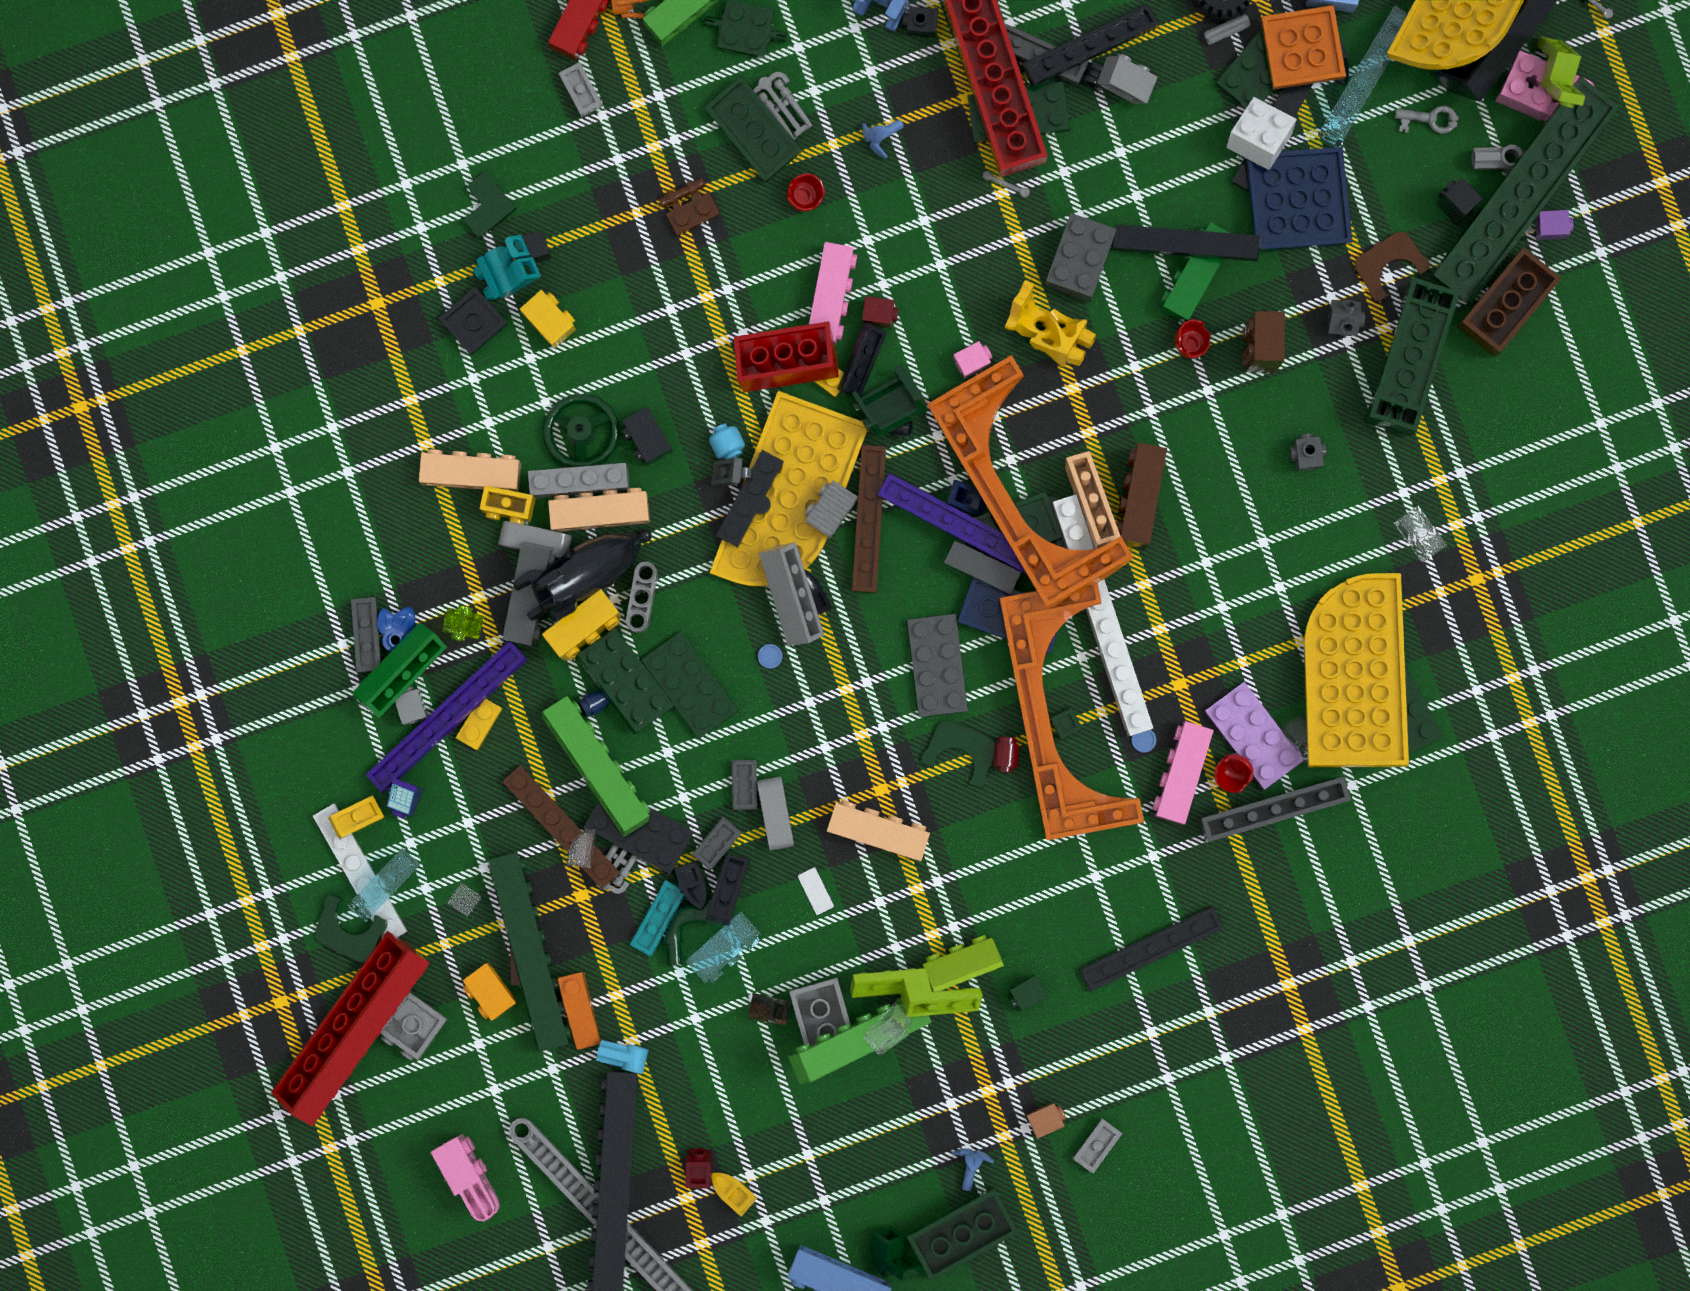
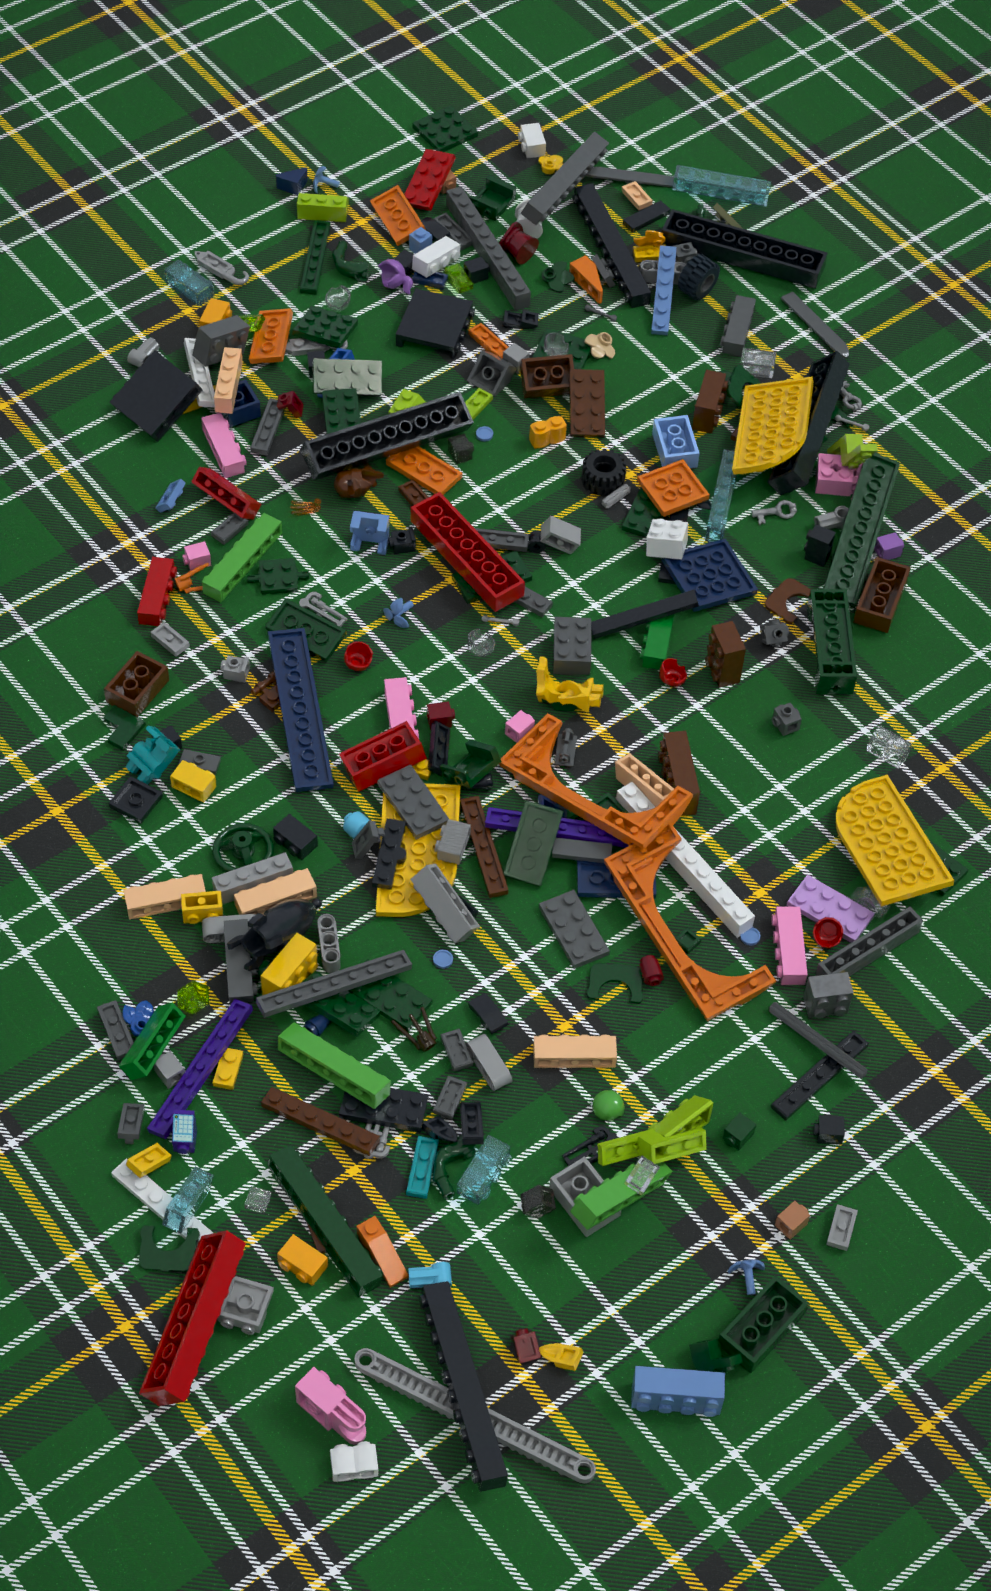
camera: 25 degrees left, 30 degrees down
(350, 761) = (131, 1122): none -> dark grey plate
(474, 1239) = (354, 1462): none -> white brick
(518, 152) = (136, 684): none -> reddish brown brick
(565, 287) = (202, 760): none -> dark grey plate
(581, 849) = (344, 1125): clear brick -> none
(626, 664) = (333, 983): none -> dark grey plate
(652, 168) = (235, 668): none -> light grey brick
(708, 250) = (300, 710): none -> dark blue plate
(709, 761) = (425, 1040): none -> dark brown plant
(796, 748) = (488, 1012): none -> black slope
(803, 433) = (413, 801): none -> dark grey plate
(815, 891) = (541, 1112): white sticker -> none
(883, 952) = (601, 1131): none -> black piece
(893, 910) = (608, 1105): none -> bright green hair
(925, 543) = (533, 843): none -> dark green plate
(966, 218) = (480, 644): none -> clear hair
(1018, 409) = (566, 748): none -> dark grey hinge
(1059, 169) = (535, 602): none -> dark grey plate
(1090, 45) = (527, 523): black tile -> none
(1131, 1024) = (829, 1130): none -> black brick
(1164, 908) = (818, 1040): none -> dark grey axle
(1198, 859) = (828, 995): none -> flat silver brick

